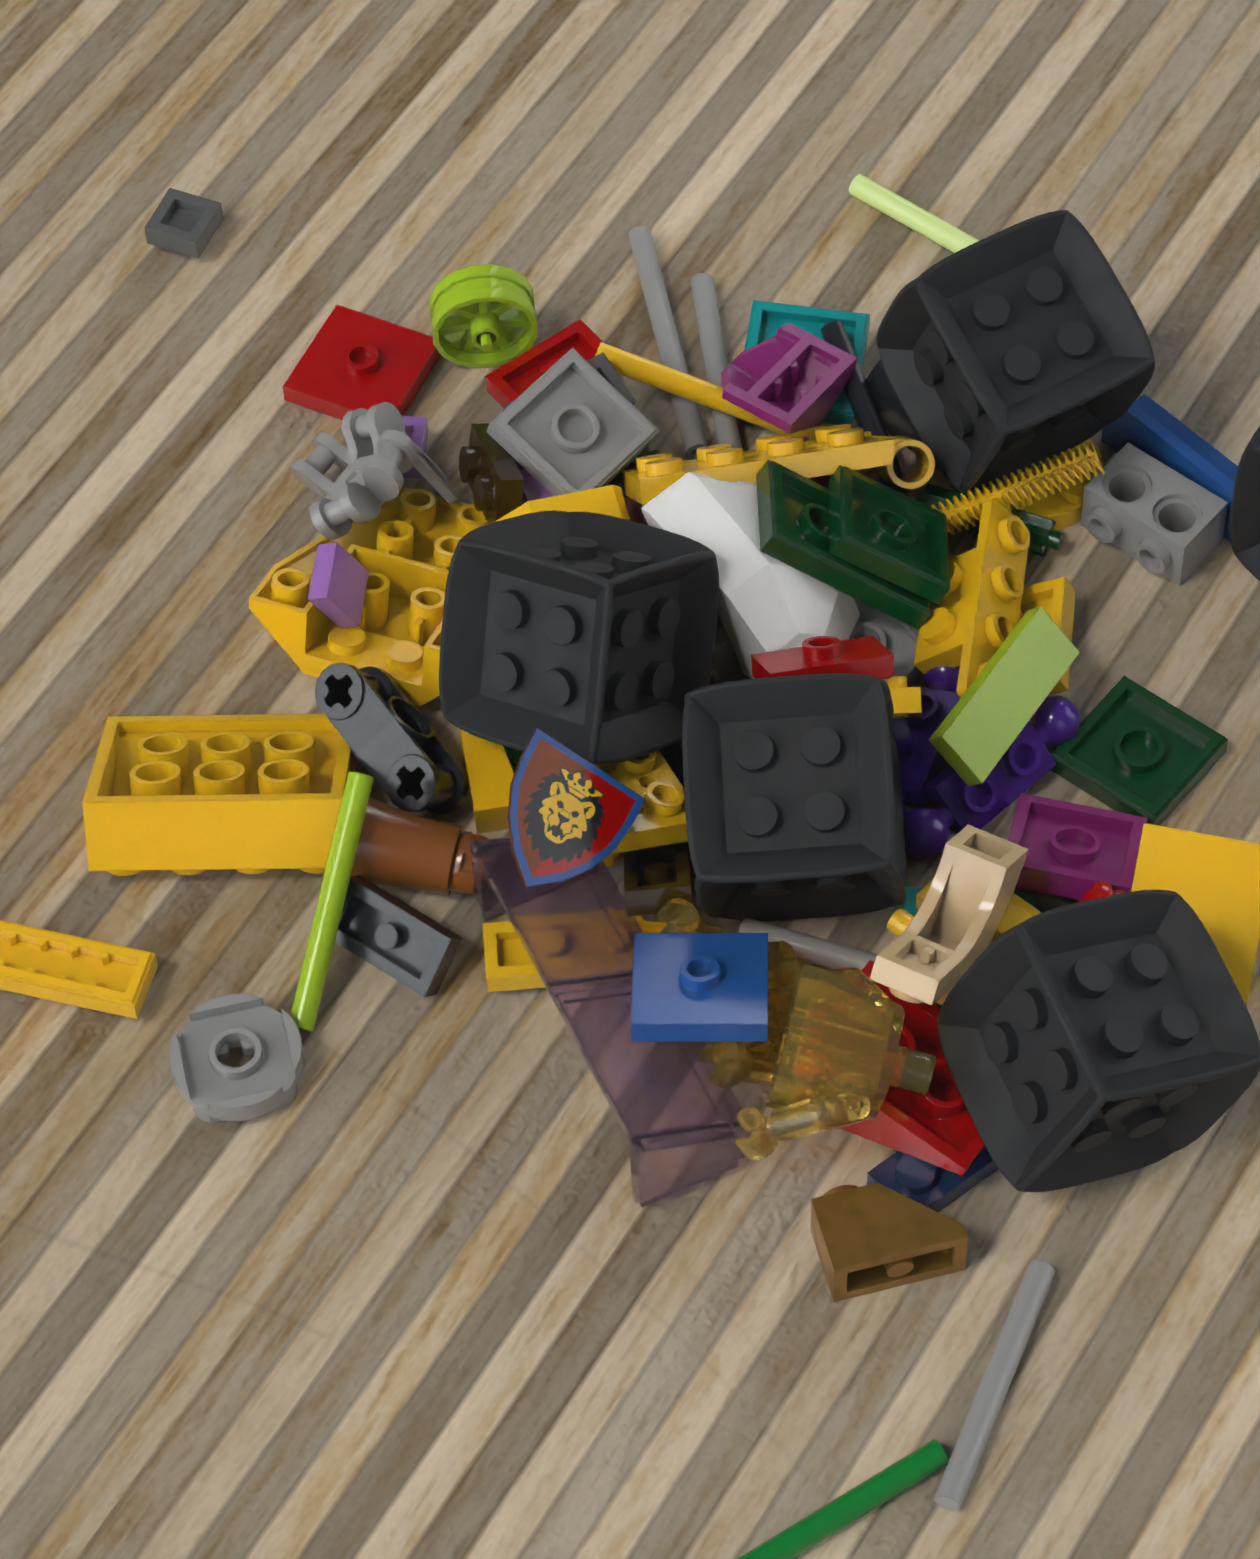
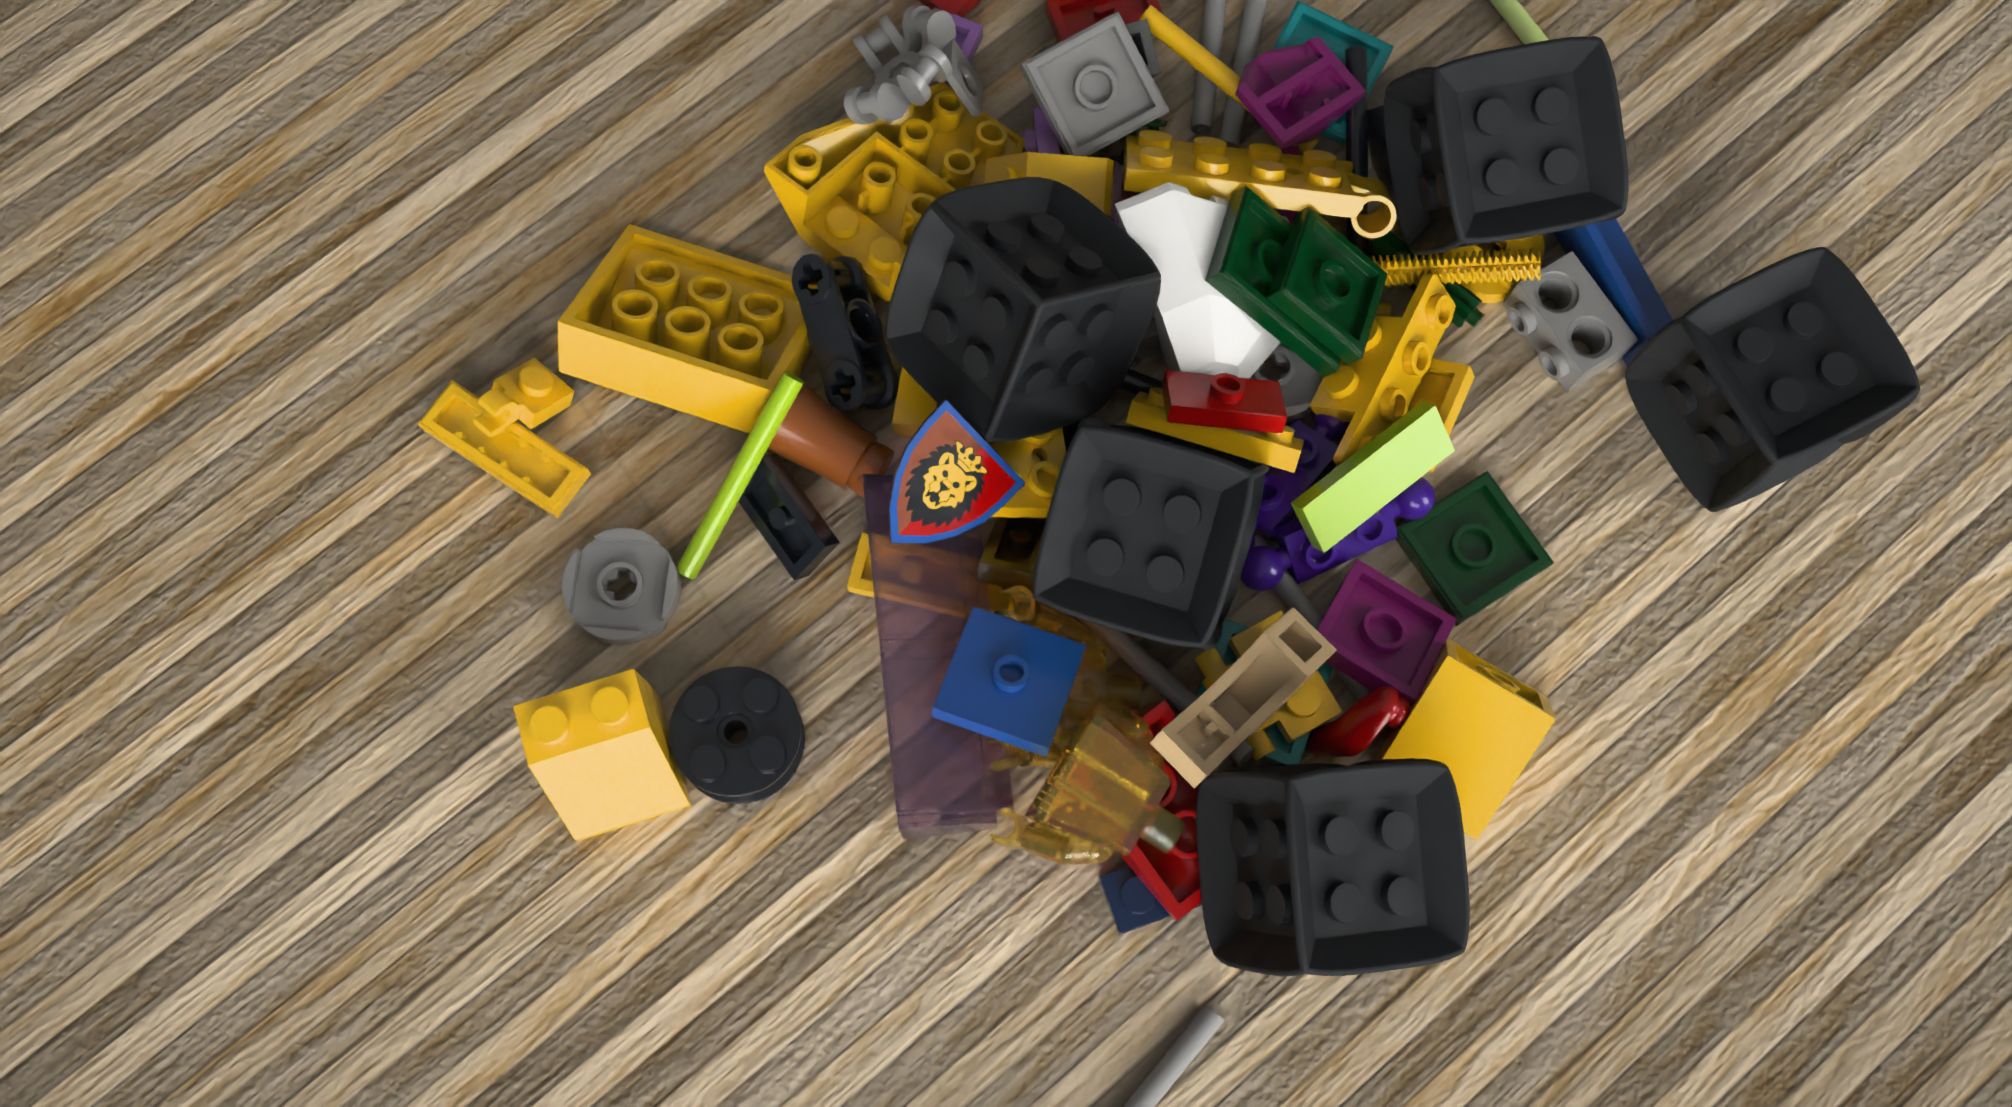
camera: 15 degrees right, 20 degrees up
(61, 903) = (525, 394): none -> yellow plate
(287, 1201) = (603, 753): none -> yellow slope
(338, 585) = (845, 174): medium lavender tile -> none
(422, 1156) = (731, 702): none -> black wheel
(490, 474) = (1016, 108): dark brown plate -> none
(882, 1240) = (1085, 945): pearl gold slope -> none

